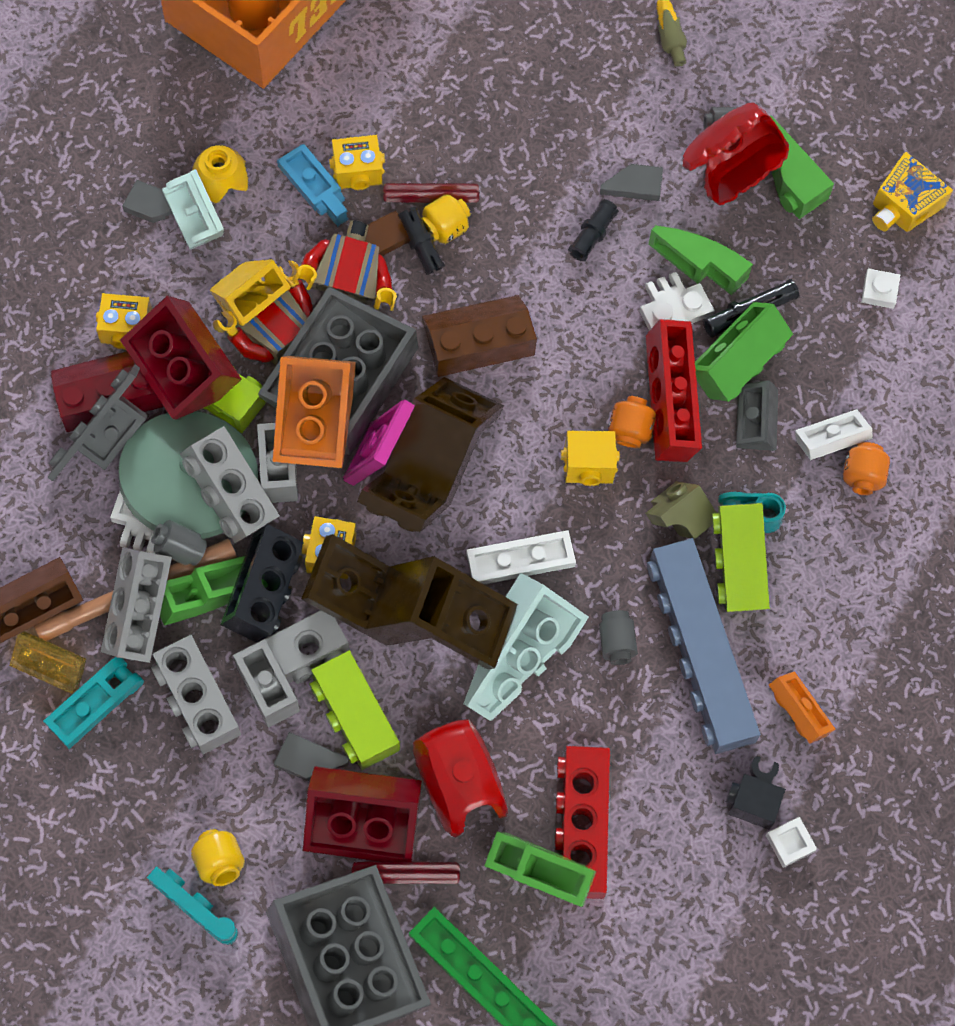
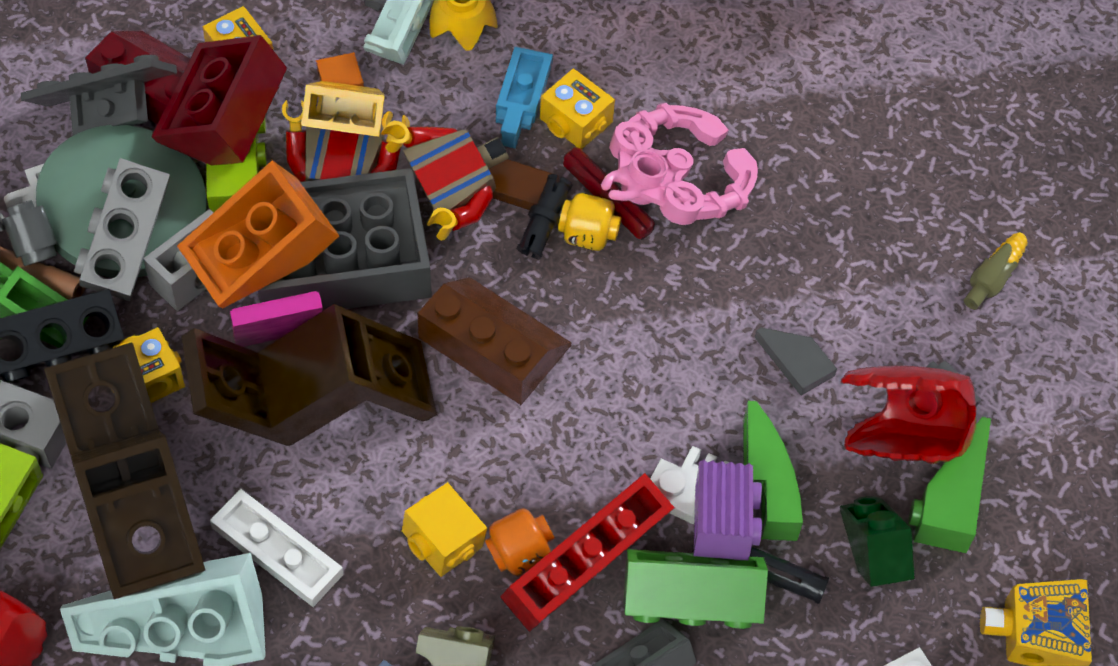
camera: 50 degrees right, 10 degrees down
(199, 278) = (340, 69): none -> orange tile
(449, 155) = (657, 175): none -> bright pink piece
(593, 230) = (704, 356): black pin -> none
(715, 297) = (725, 511): none -> medium lavender brick
(790, 235) = (878, 541): none -> dark green slope

